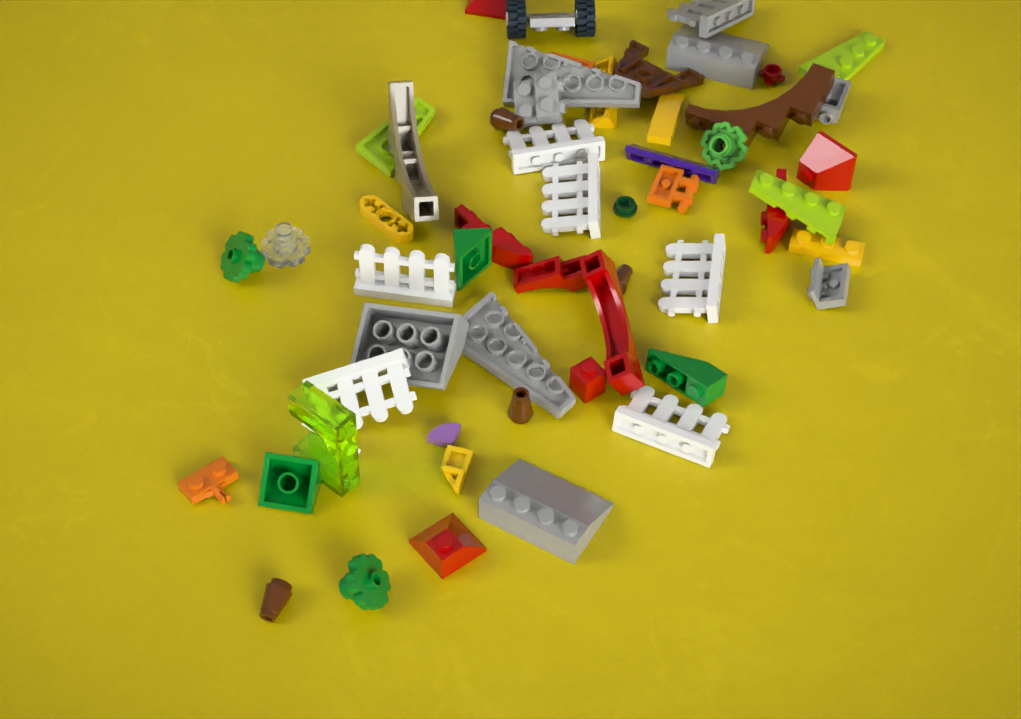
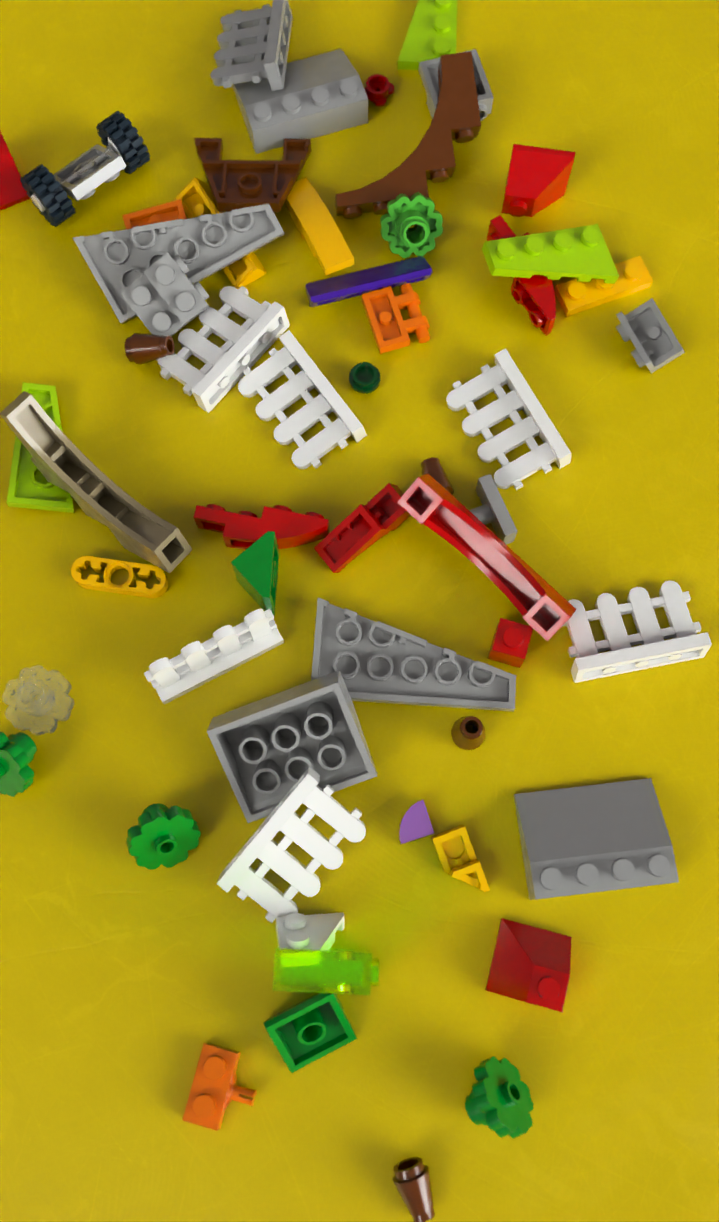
camera: 35 degrees left, 25 degrees up
(283, 347) = (162, 836): none -> green plant
(641, 312) = (494, 510): none -> light grey tile
(688, 375) = (611, 560): green slope -> none

